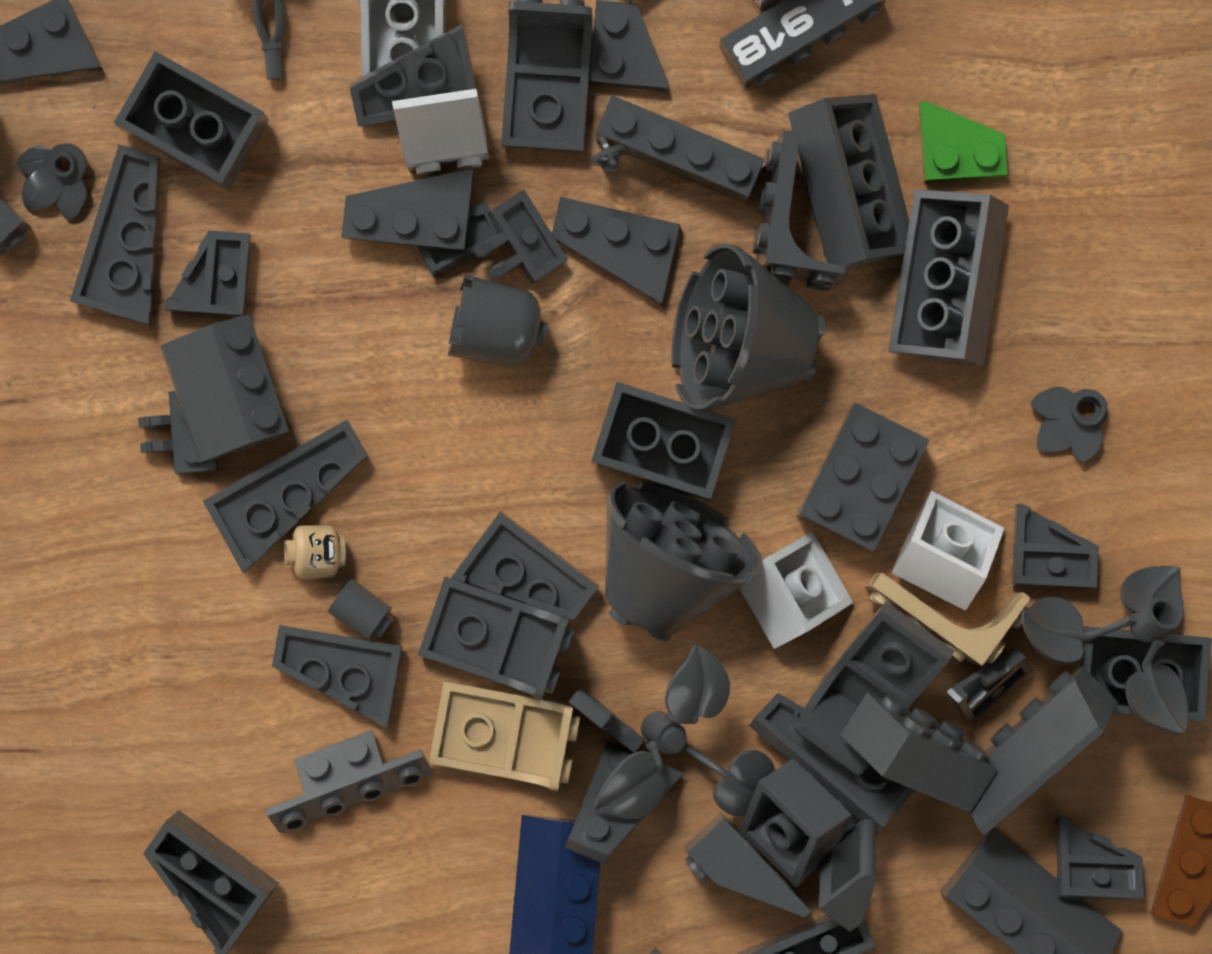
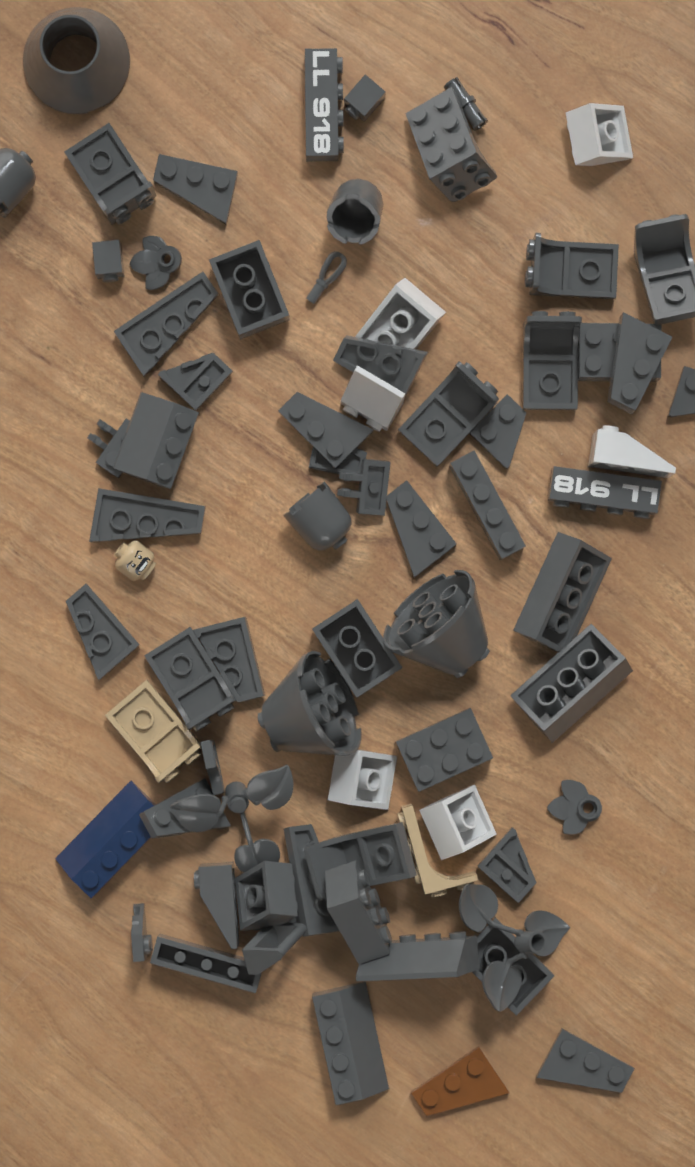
camera: 30 degrees right, 0 degrees up
(343, 777) = (56, 687): dark grey bracket -> none
(361, 611) = (133, 610): dark grey brick -> none
(607, 158) = (446, 481): dark grey piece -> none
(773, 239) = (496, 590): dark grey bracket -> none
(959, 147) = (632, 620): bright green wing -> none
(989, 684) = (422, 907): dark grey wing -> none
(1094, 866) = (401, 1044): dark grey wing -> none

